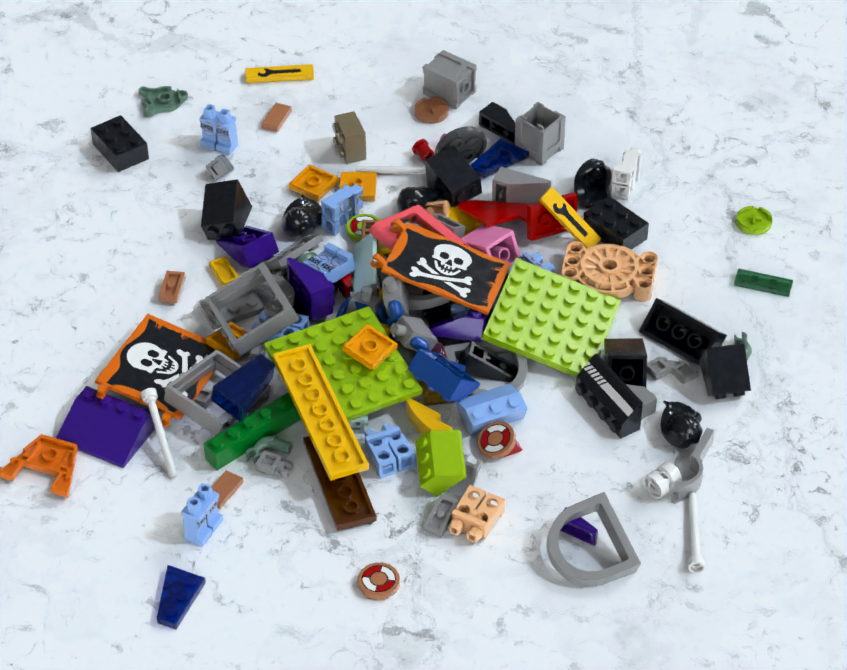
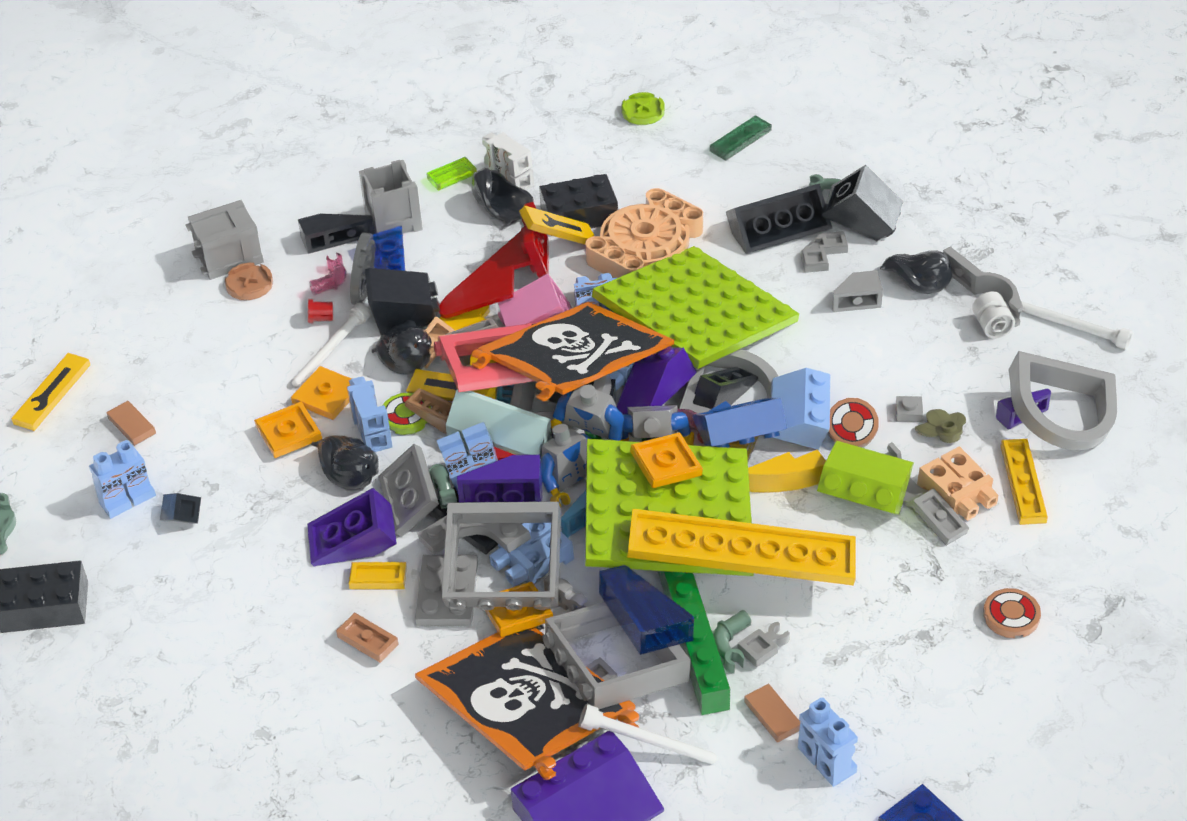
camera: 60 degrees left, 0 degrees up
(224, 209) = (283, 525): black slope -> none
(344, 496) = (874, 596): reddish brown plate -> none
(349, 137) = (248, 360): dark tan brick -> none
(389, 450) = (808, 513): light blue hips -> none
(508, 551) = (1023, 481): none -> yellow tile
(518, 187) = (466, 250): light grey slope -> none
(533, 490) = (942, 424): none -> olive plate
(538, 468) = (909, 409): none -> light grey plate
(607, 155) = (451, 173): none -> clear neon green tile
(609, 397) = (849, 304): black slope -> none
(627, 359) = (800, 276): black slope -> none

